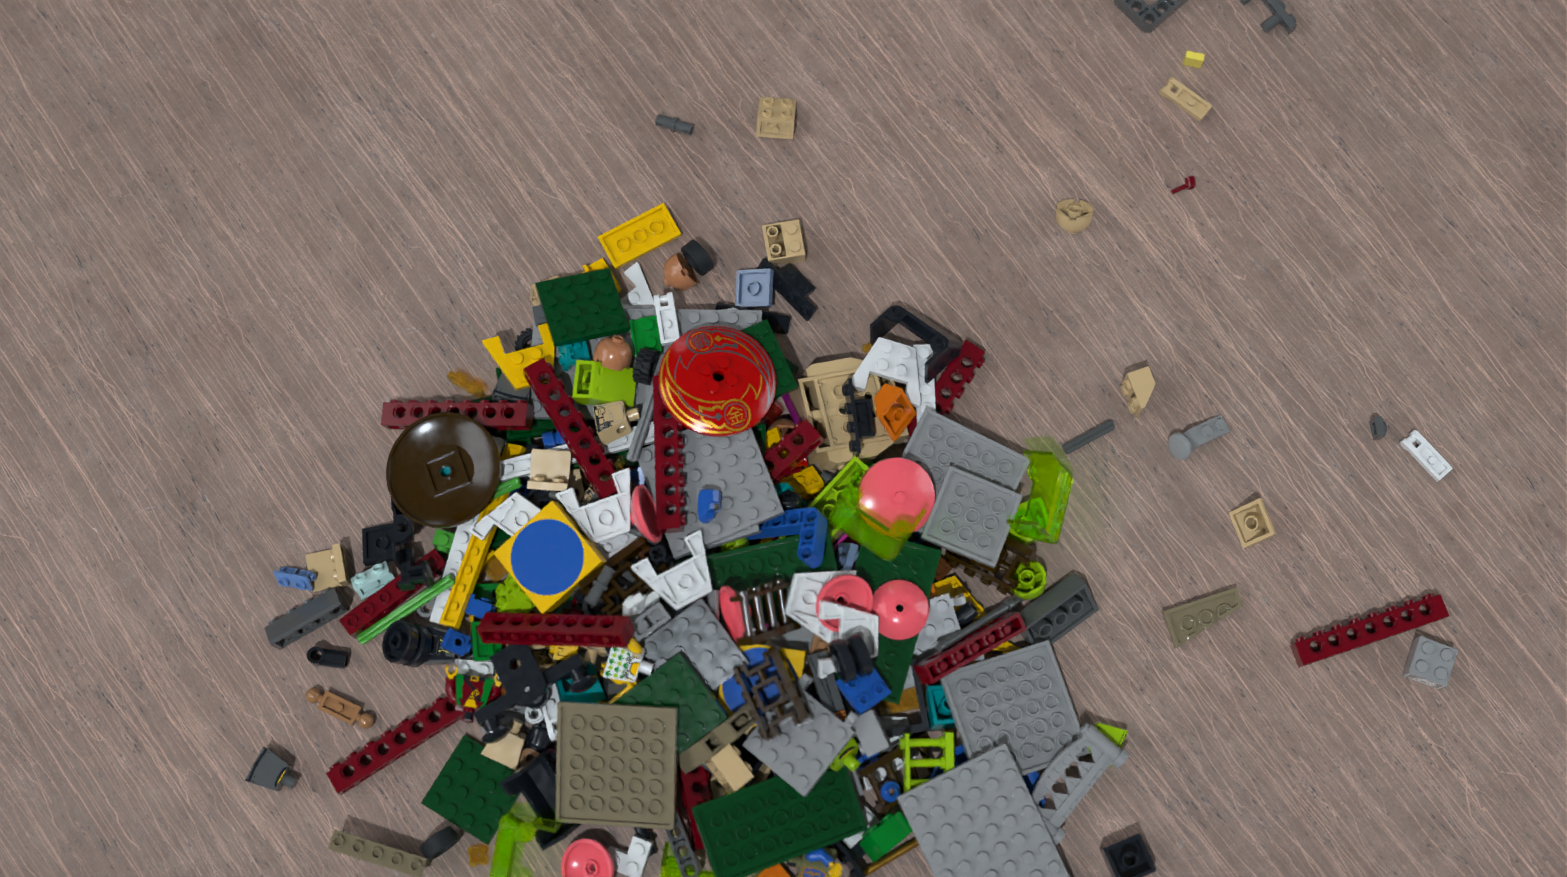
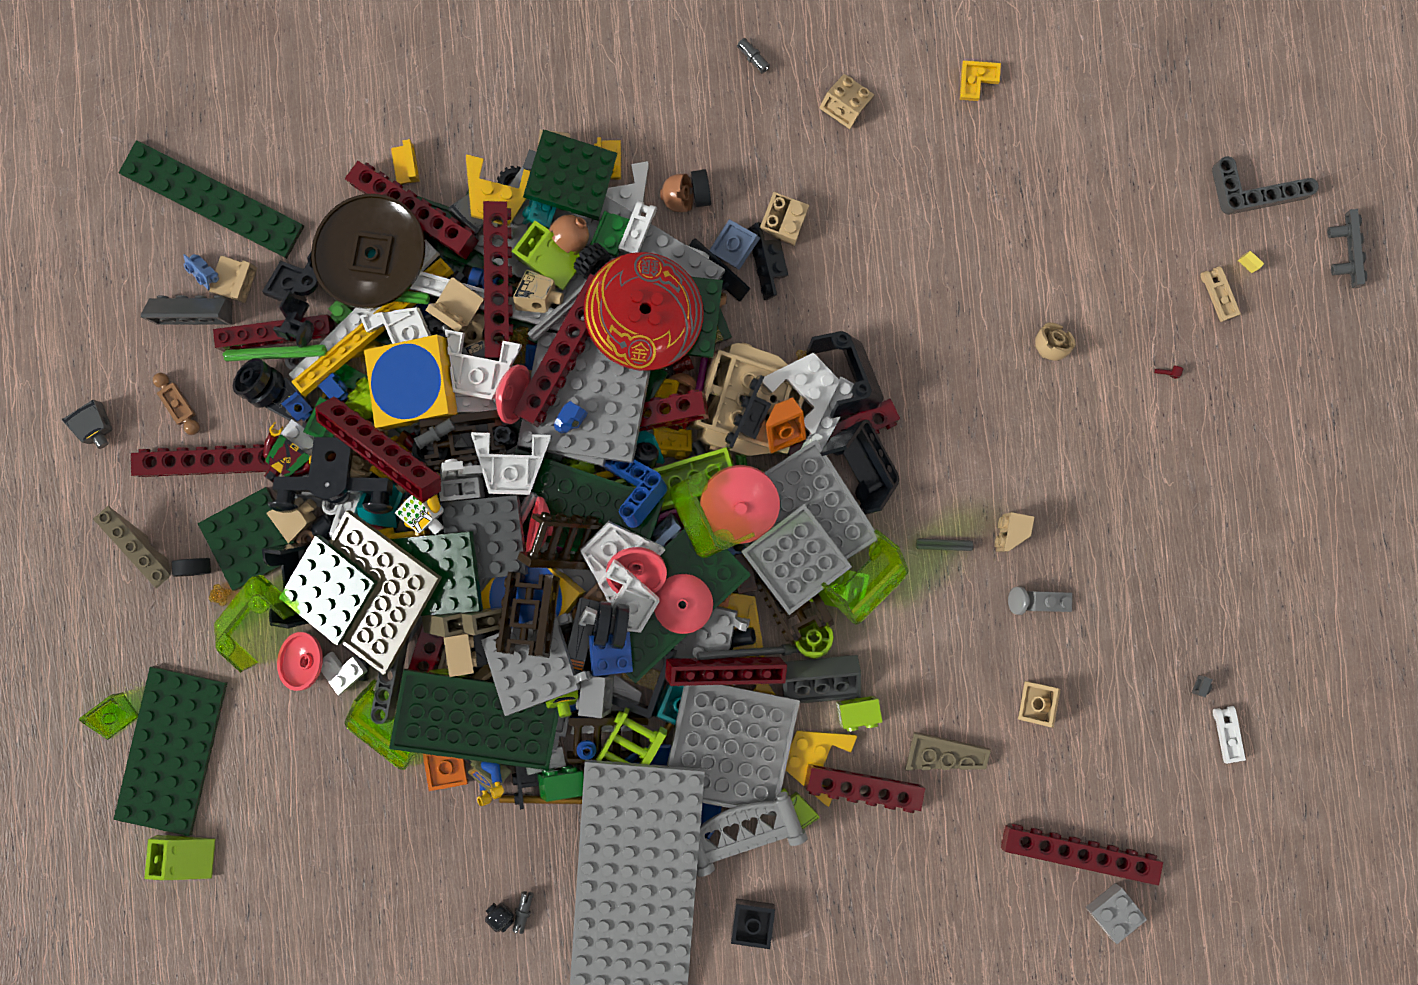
camera: 30 degrees right, 10 degrees up
(267, 511) = (211, 199): none -> dark green plate
(329, 657) = (189, 355): black piece -> none
(372, 580) = (261, 310): light aqua bracket -> none
(424, 382) = (405, 163): none -> yellow panel
(460, 380) = (443, 192): clear yellow plate -> none
(580, 783) = (328, 589): none -> plate
(639, 236) = (663, 139): yellow plate -> none
(870, 37) = (975, 73): none -> yellow plate
(980, 404) = (869, 463): none -> black windscreen
(1086, 686) = (813, 749): none -> yellow wing
(1104, 620) = (859, 712): none -> lime brick
(1195, 663) = (911, 802): none -> dark red brick

